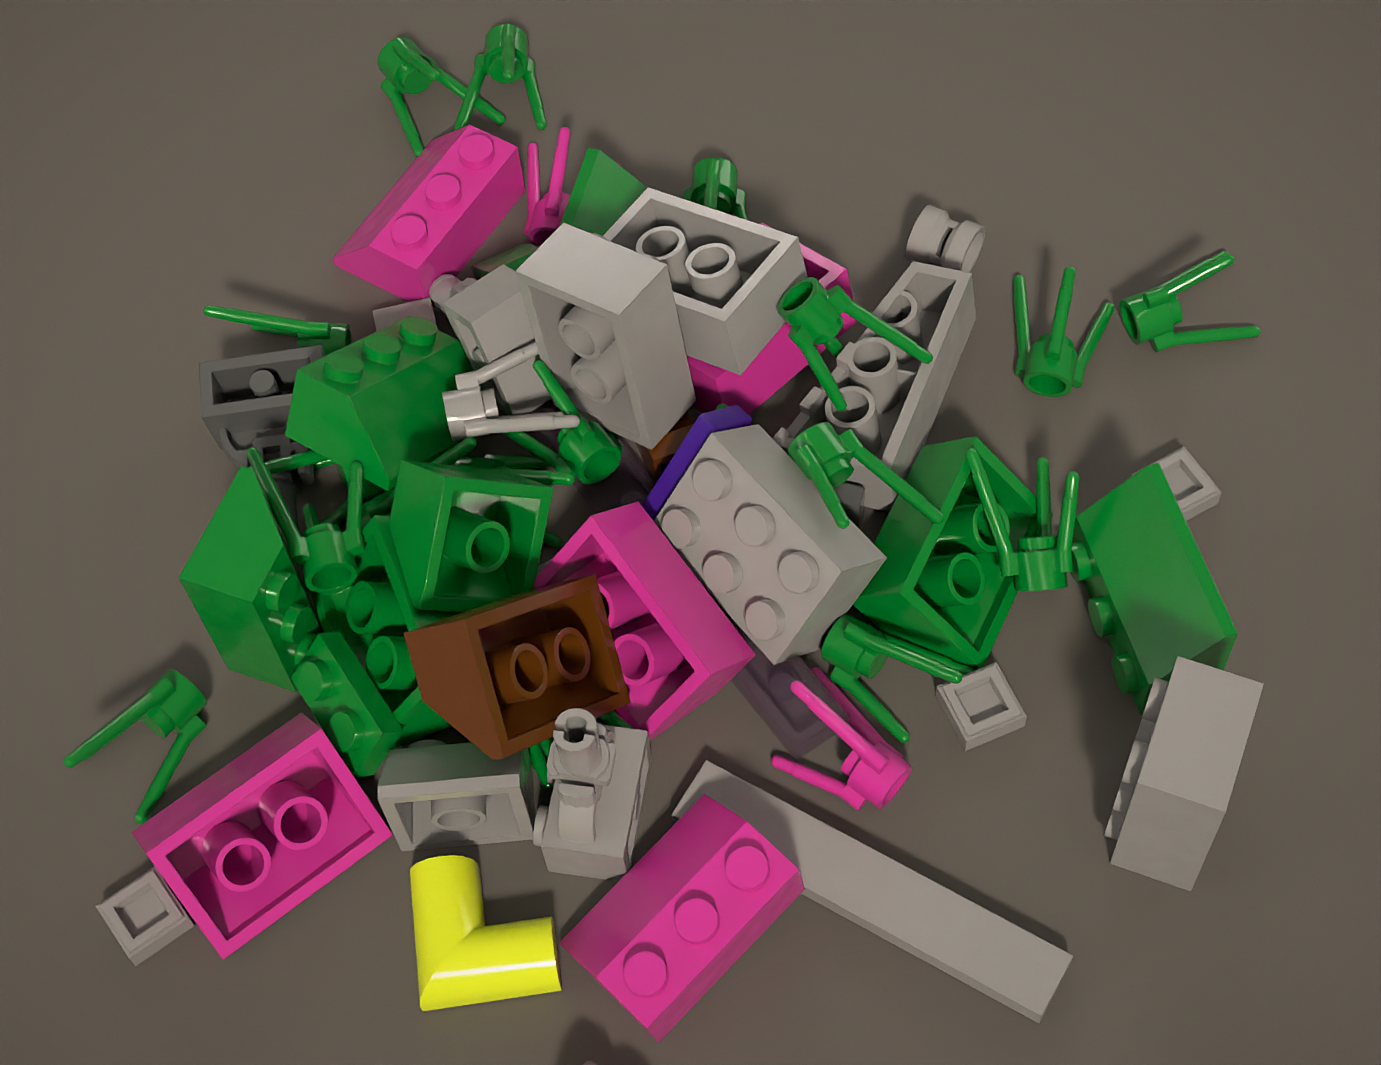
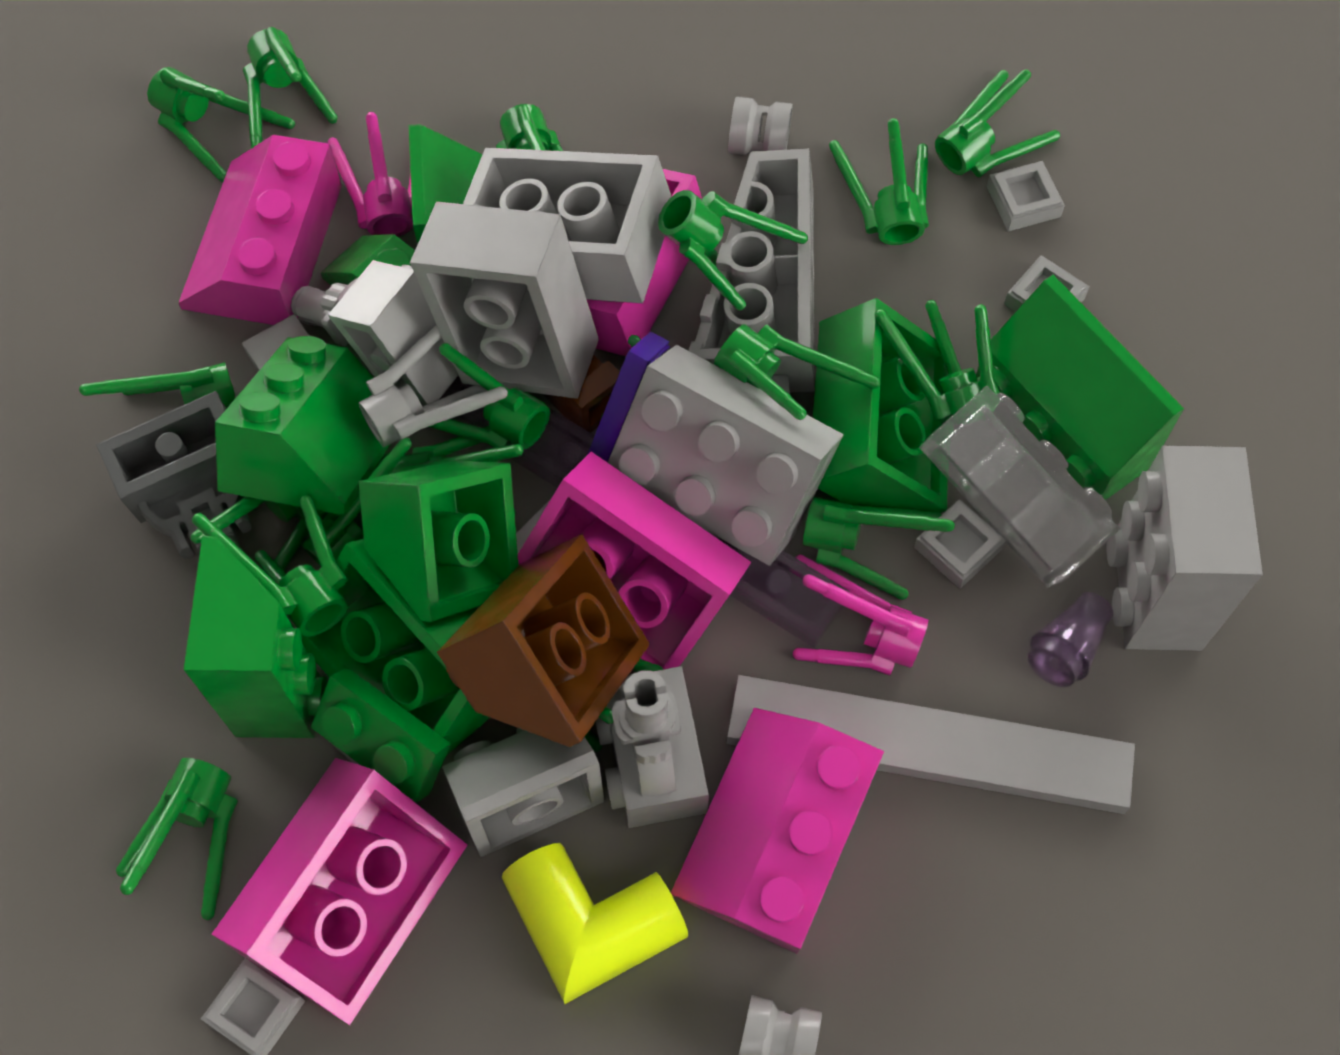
camera: 25 degrees left, 5 degrees up
(1048, 835) = (1068, 644): none -> clear purple cone
(1054, 663) = (1020, 486): none -> clear brick
(1195, 383) = (1025, 196): none -> light grey tile

